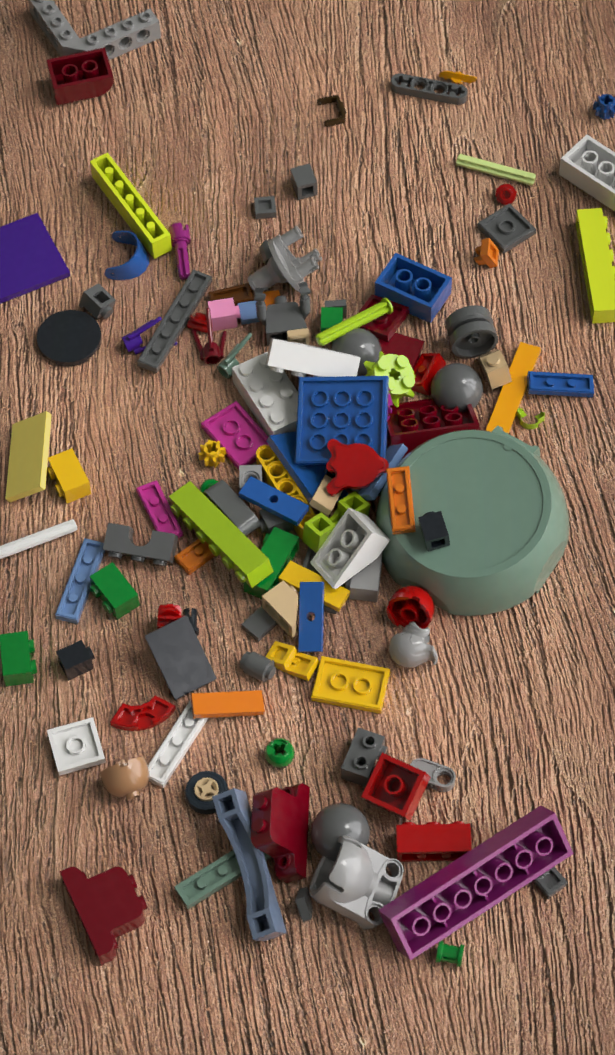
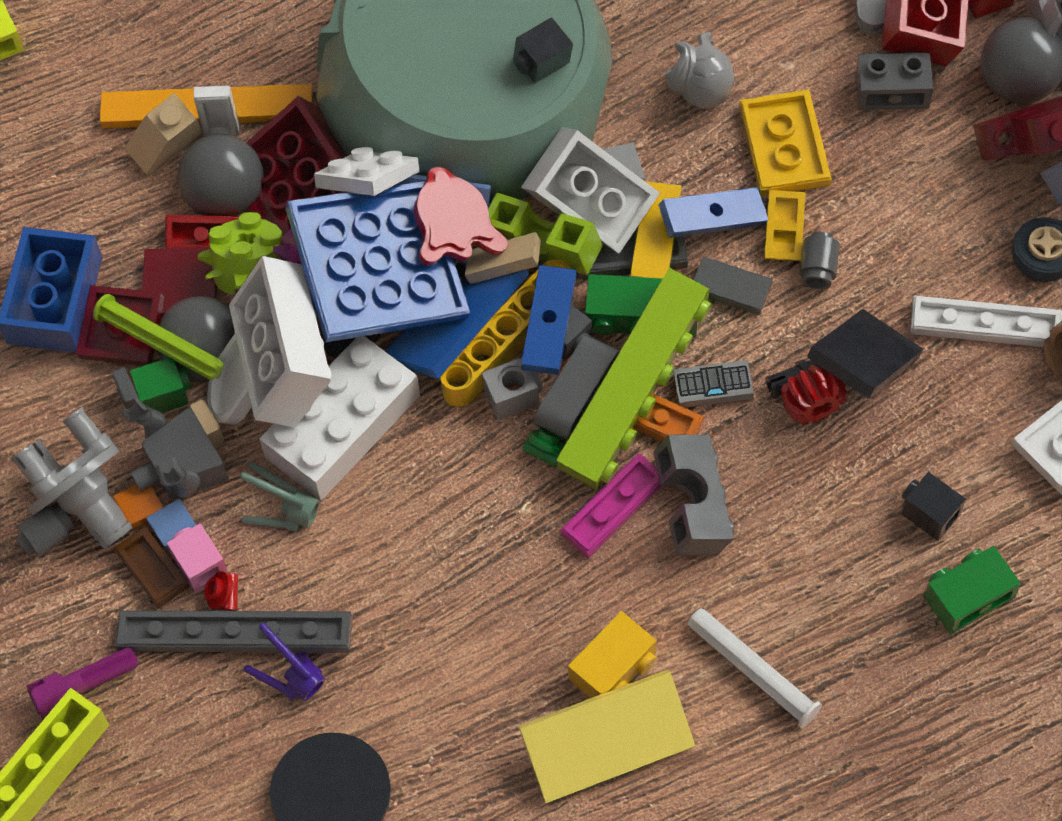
camera: 110 degrees left, 5 degrees up
(78, 585) = (788, 566): medium blue tile -> none
(98, 302) = (243, 769): dark grey brick -> none
(114, 591) = (789, 502): green brick -> none
(136, 265) = (86, 757): blue piece -> none
(142, 716) = (968, 383): red tile -> none
(207, 585) = (713, 384): none -> tile
(211, 352) = (279, 546): dark red plant -> none
(212, 453) = (480, 453): yellow gear -> none
(227, 704) = (900, 274): orange tile -> none
(236, 433) = (424, 449): dark pink tile -> none
(279, 745) = (942, 171): green piece -> none
(282, 606) = (715, 251): tan slope -> none
(400, 430) = (366, 171): none -> white plate
(400, 500) = (502, 116): orange tile -> none
(411, 605) = (636, 93): red cylinder -> none
(471, 331) = (116, 174): dark grey wheel -> none
(493, 389) = (216, 110): none -> white tile
(540, 417) = (239, 59): lime piece -> none
(560, 384) = (161, 47): blue tile -> none

